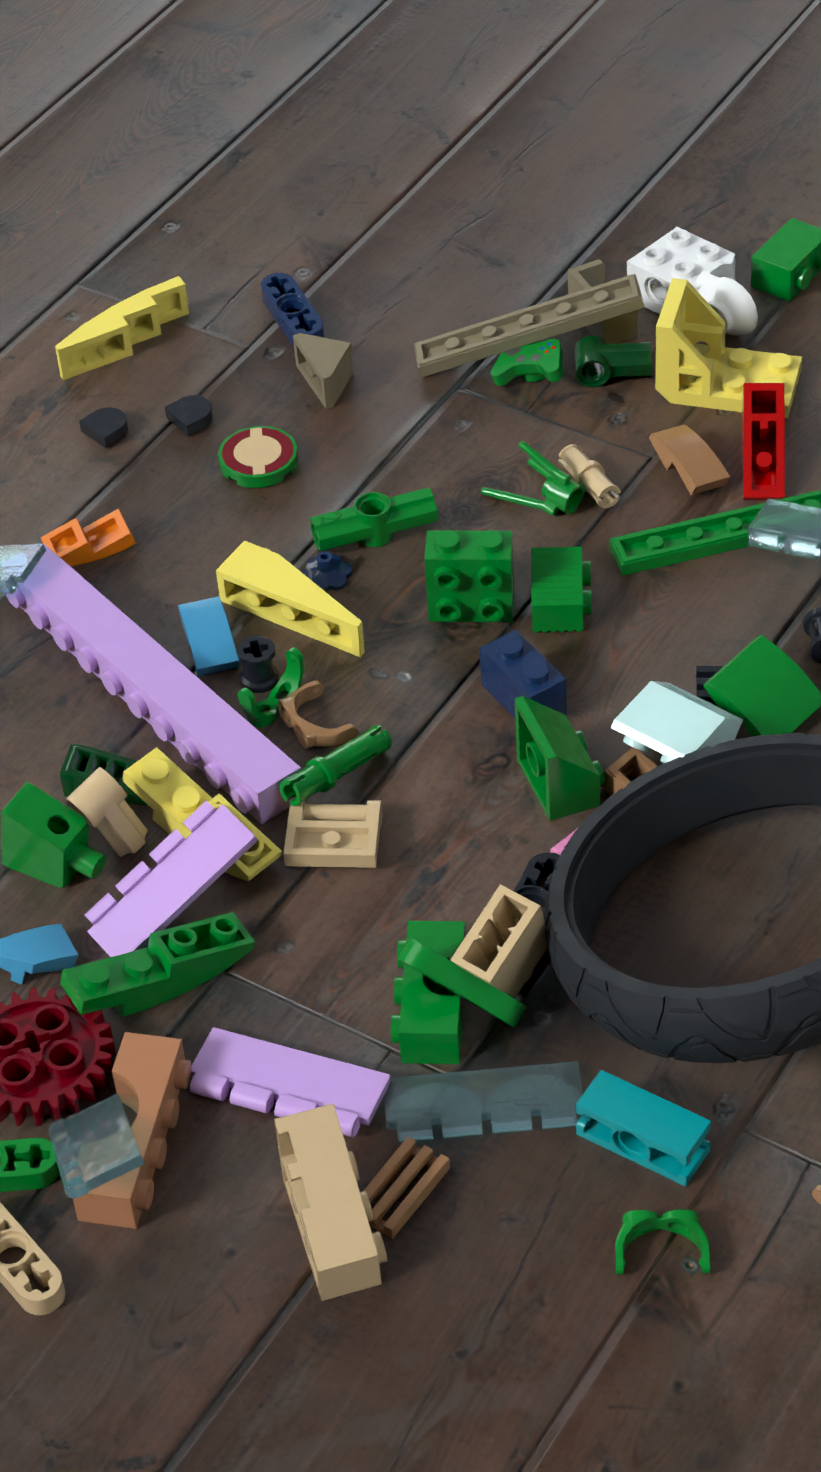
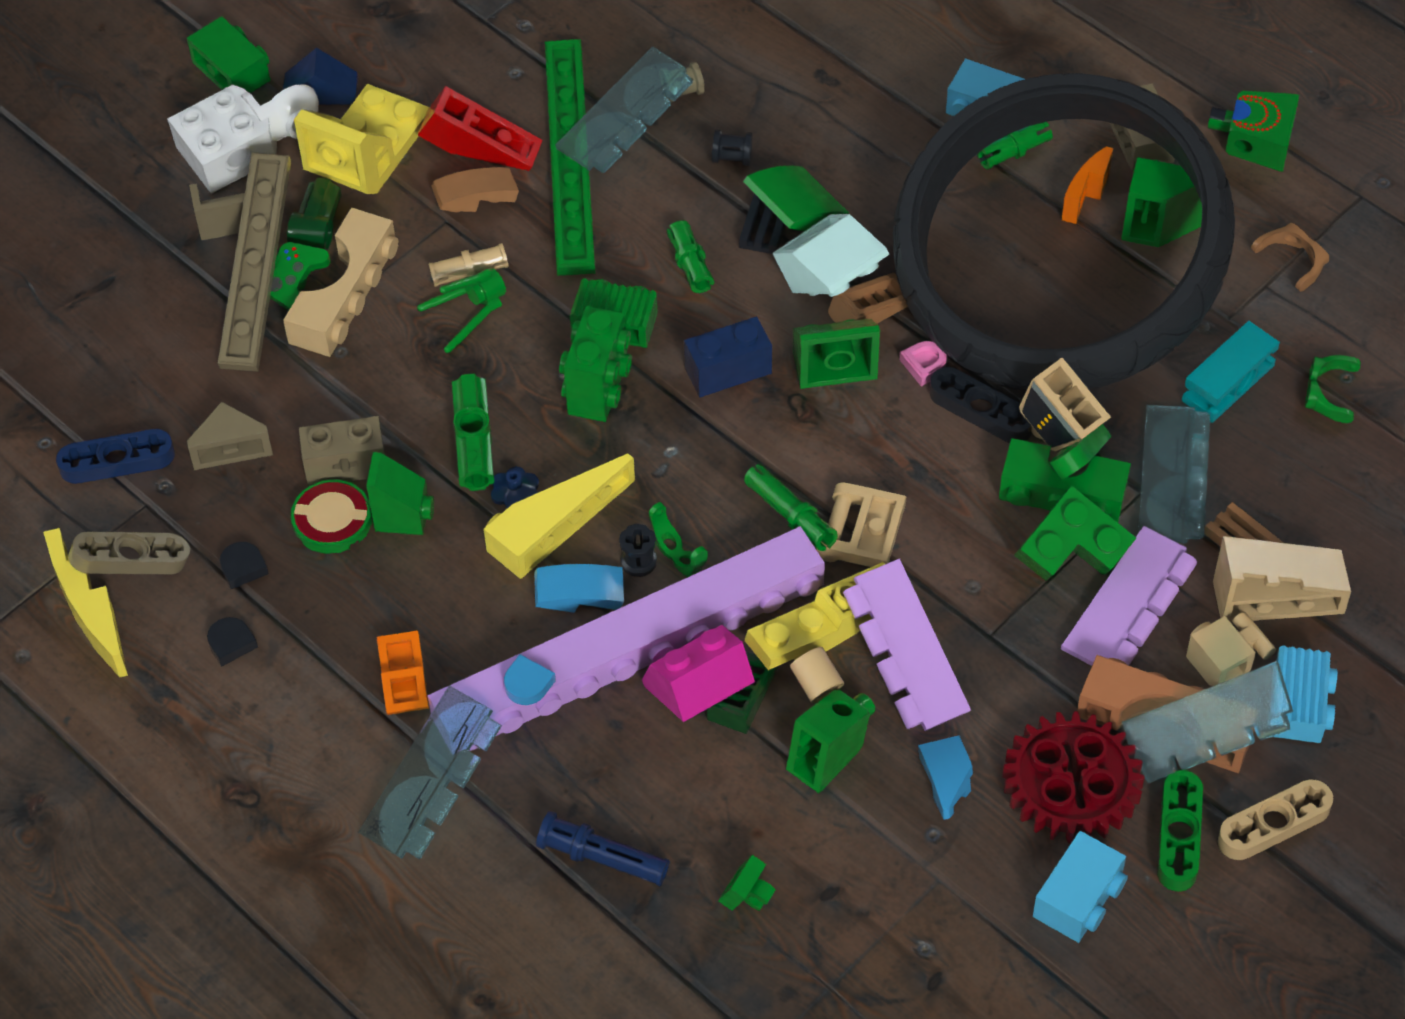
camera: 80 degrees left, 10 degrees up
(64, 599) = (527, 681): none -> dark azure tile
(100, 723) = (700, 673): none -> dark pink slope
(169, 967) = (992, 670): green slope -> none
(171, 349) = (143, 542): none -> dark tan beam
(177, 1253) = (1308, 684): none -> medium azure brick
(226, 1173) = (1223, 652): none -> tan brick
(271, 475) = (397, 497): none -> green slope
(306, 732) = (692, 535): medium nougat cap -> none
(325, 439) = (340, 449): none -> dark tan brick
(344, 996) = (1077, 527): none -> green brick
(577, 401) = (322, 316): none -> tan arch
(638, 644) = (690, 256): none -> green pin
(793, 327) = (327, 76): none -> dark blue slope

